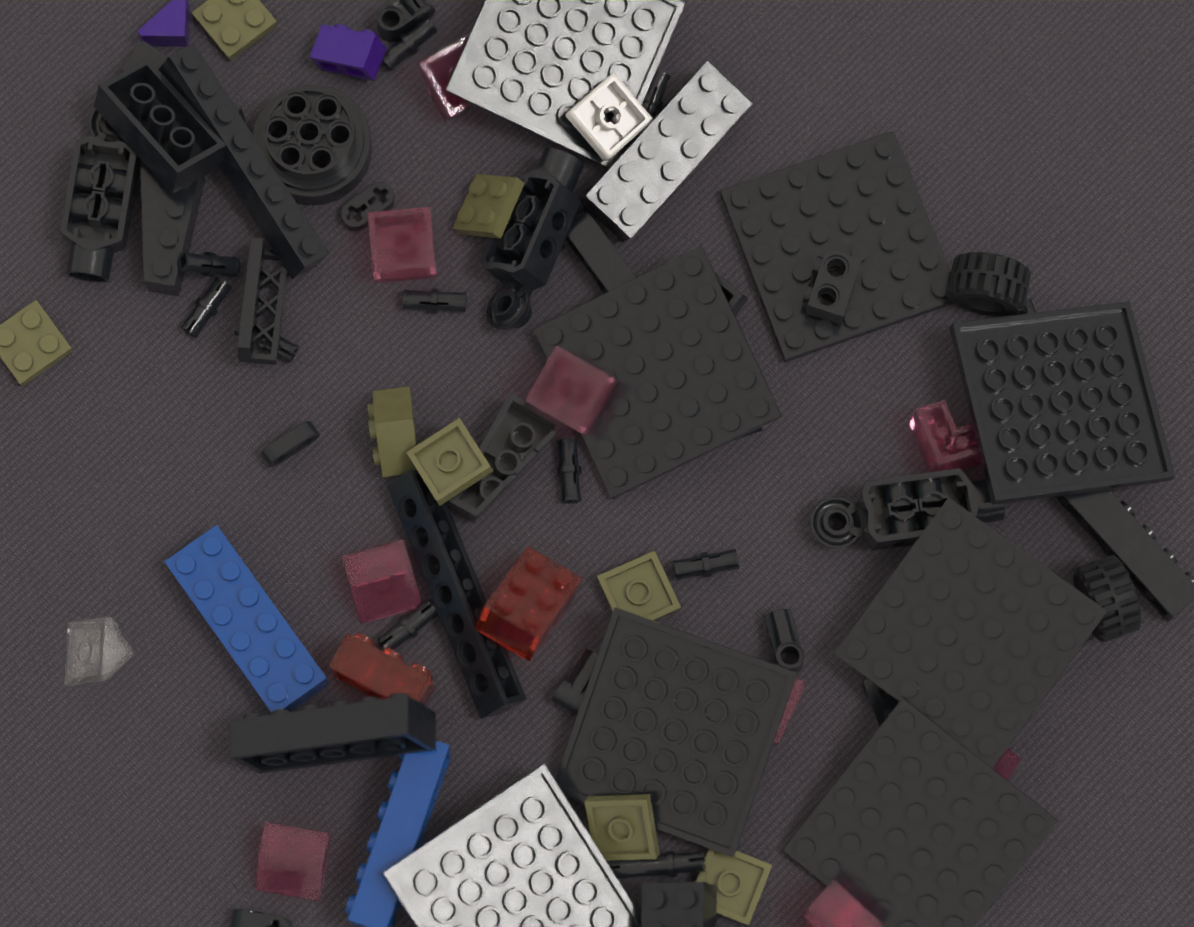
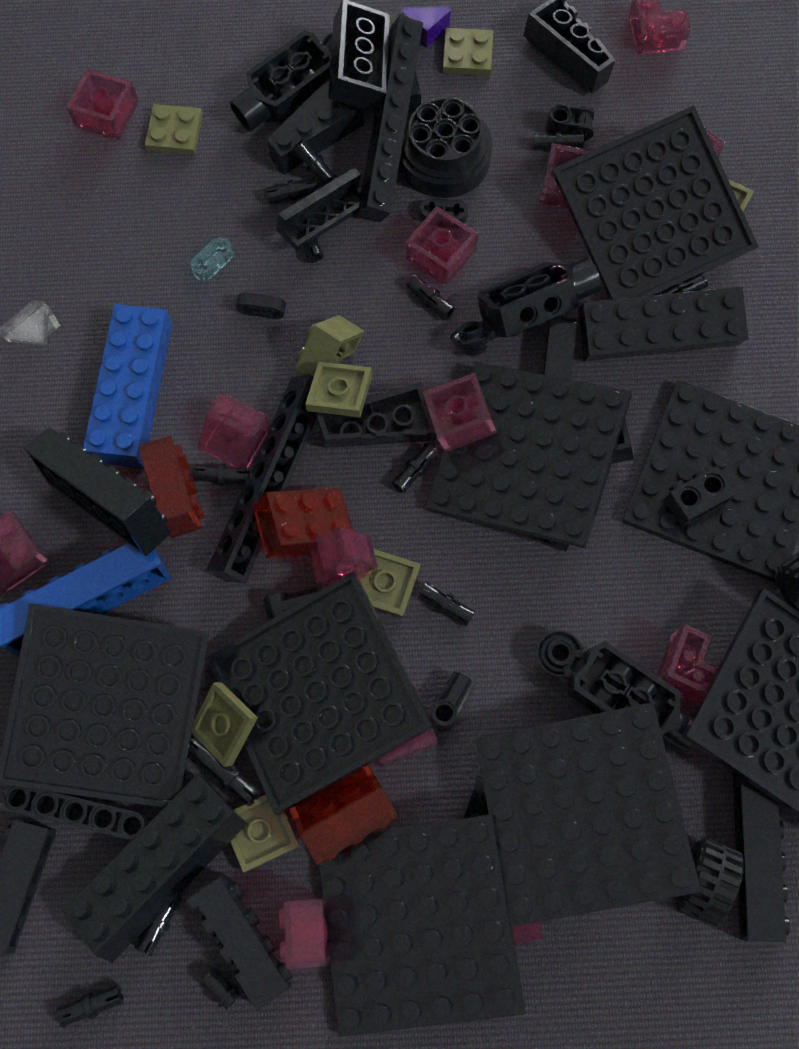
camera: 45 degrees right, 5 degrees down
(189, 438) = (210, 257): none -> clear light blue beam
(348, 51) = (516, 114): dark purple brick -> none
(488, 206) = (517, 265): olive plate -> none
(589, 605) = (340, 554): none -> clear pink brick
(628, 121) = (655, 258): white brick -> none
(786, 806) = (342, 814): none -> clear red brick

